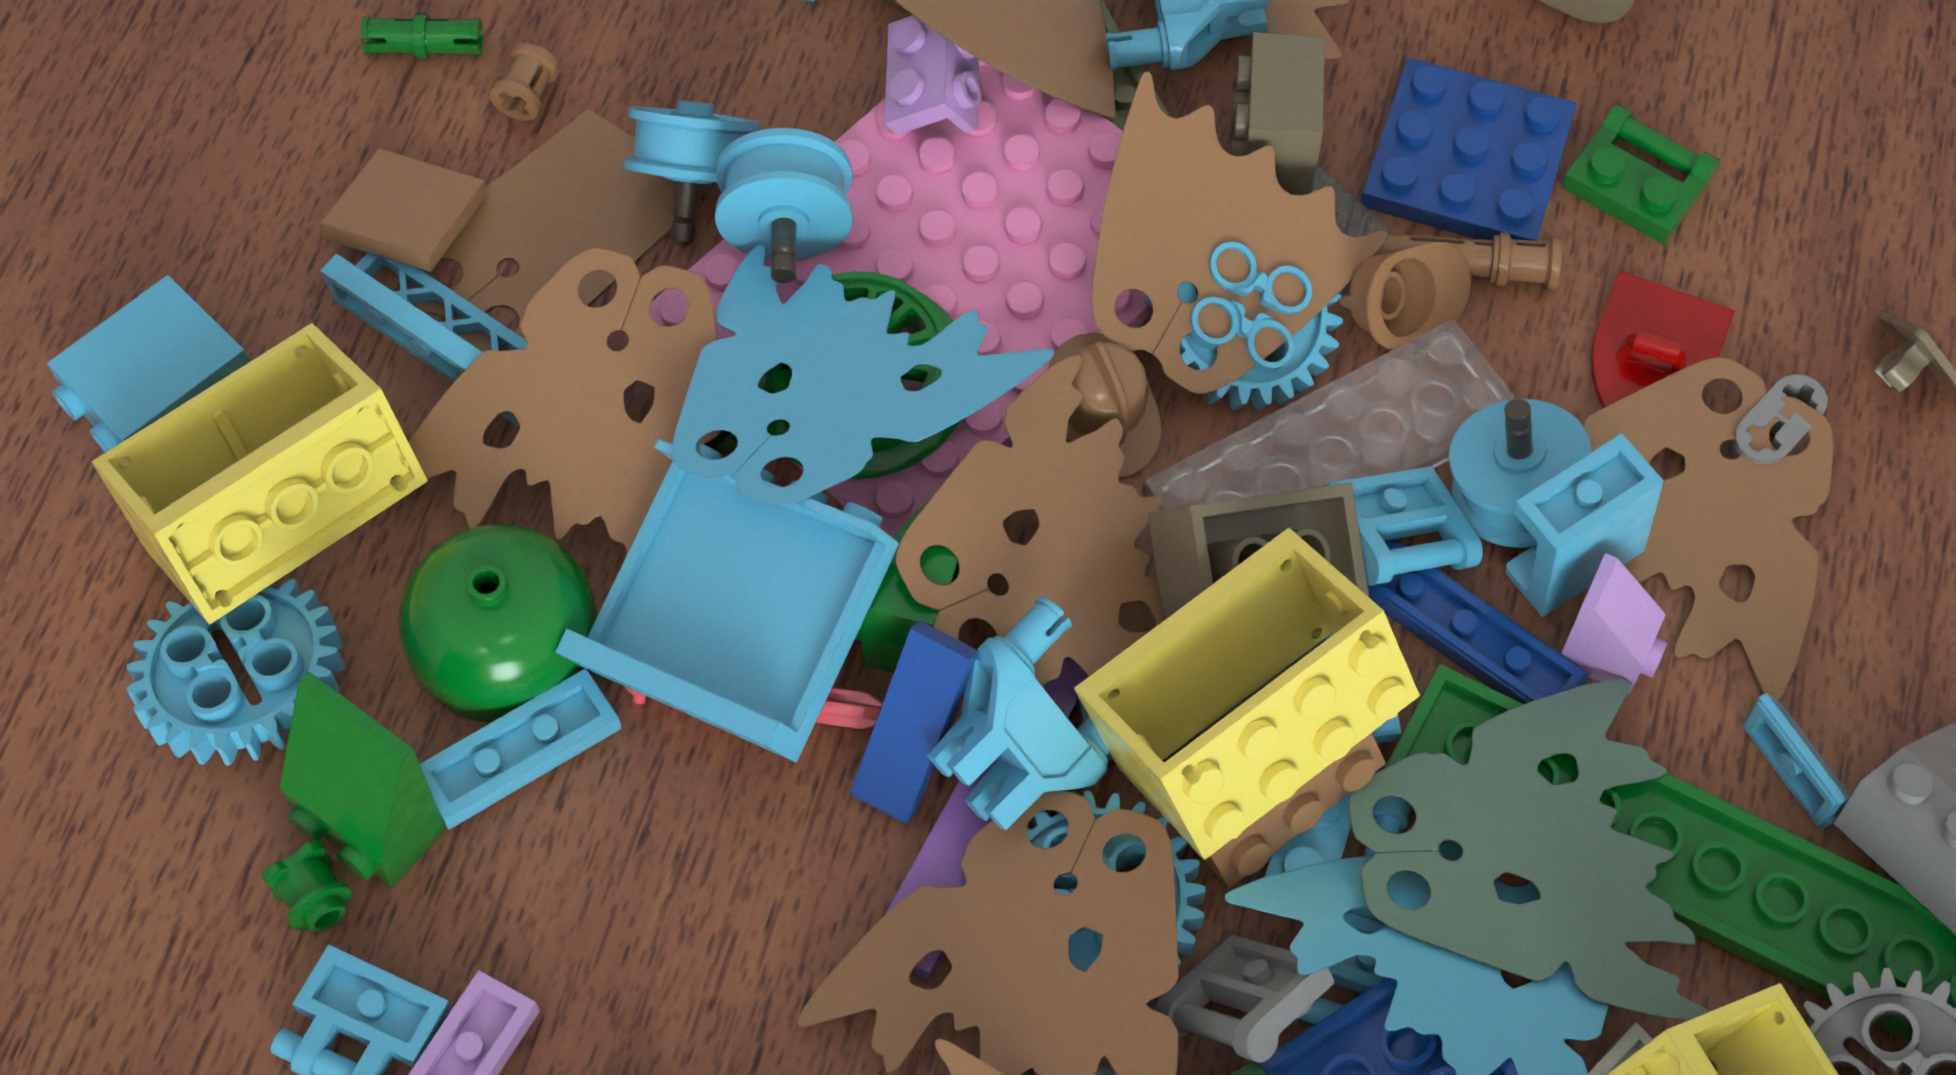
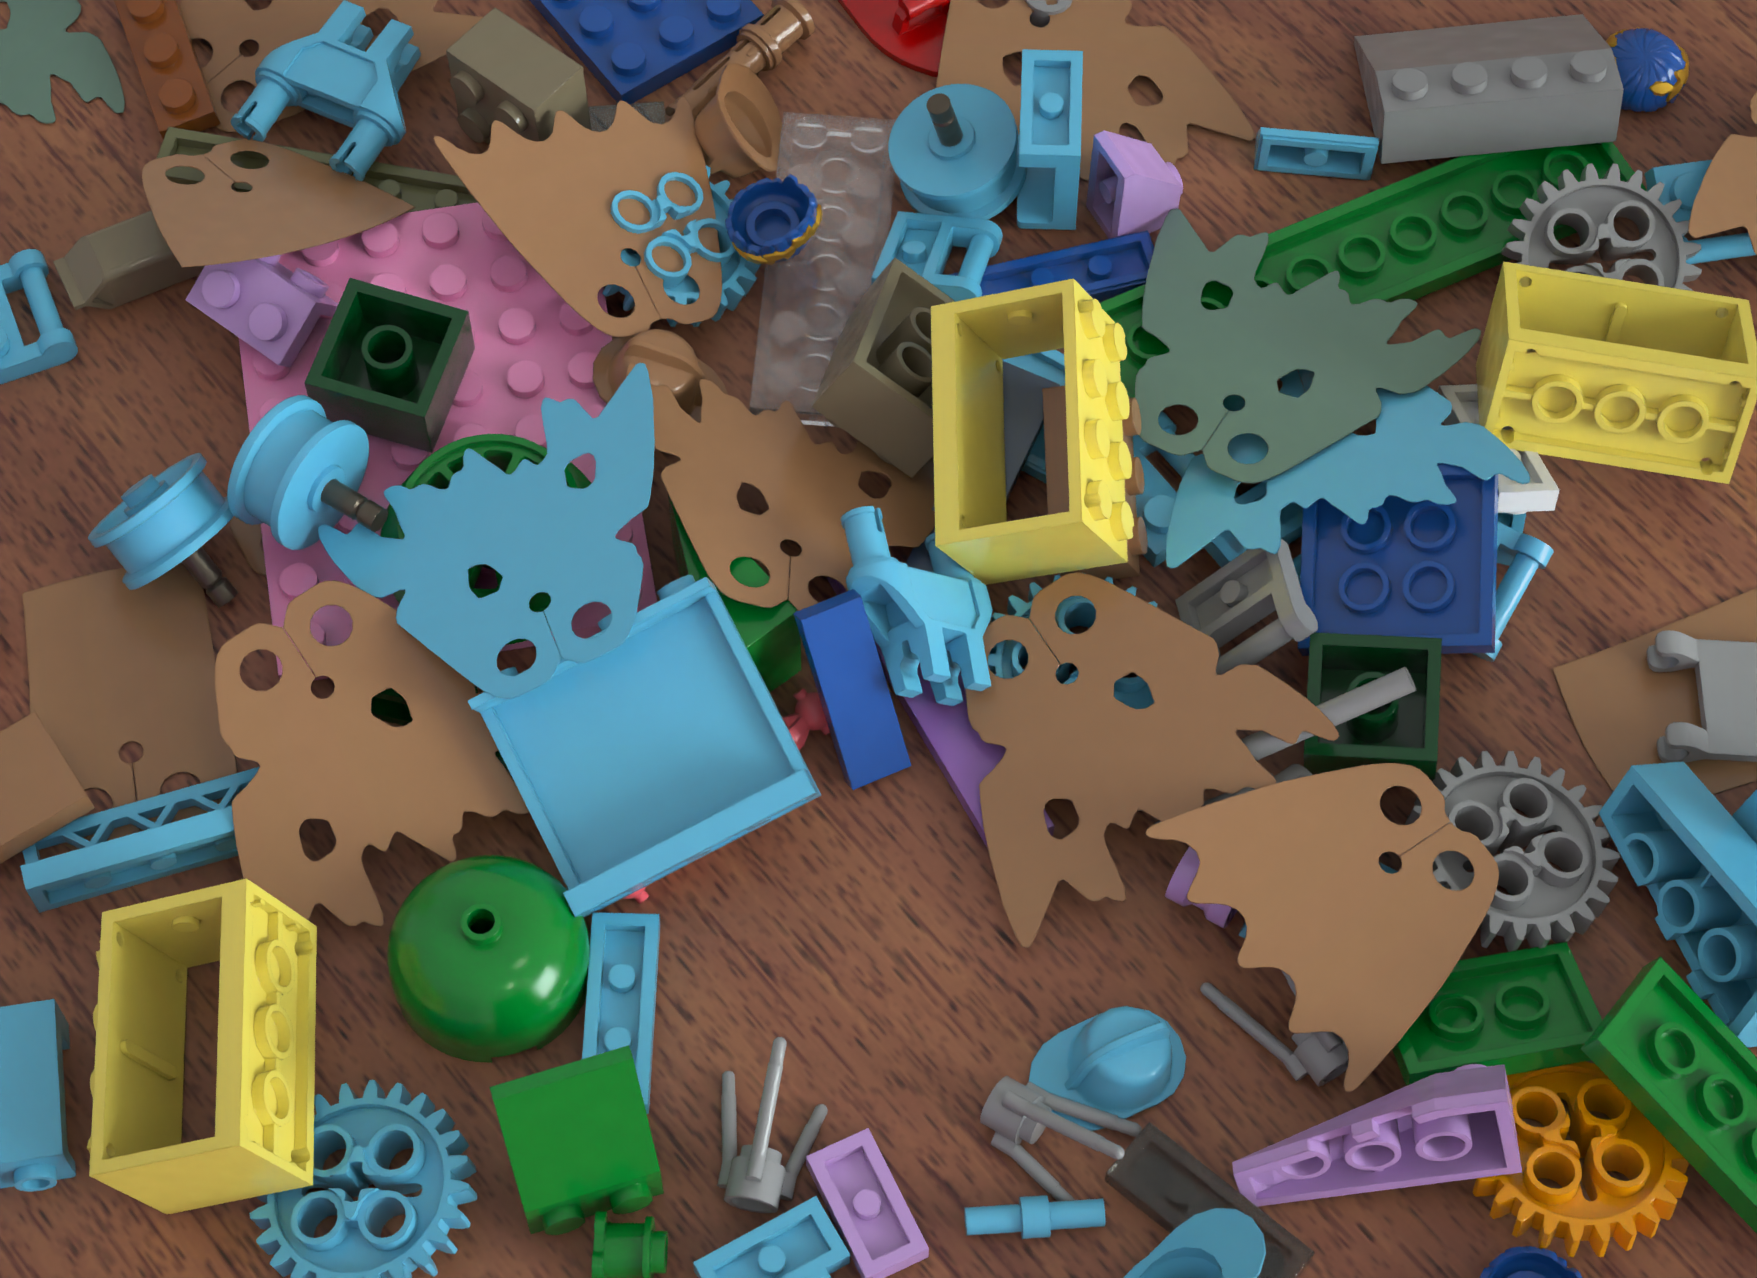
camera: 55 degrees left, 0 degrees up
(442, 942) = (755, 1177): none -> light grey plant
(936, 192) = (391, 363): none -> dark green brick
(1320, 373) = (772, 220): none -> blue hair

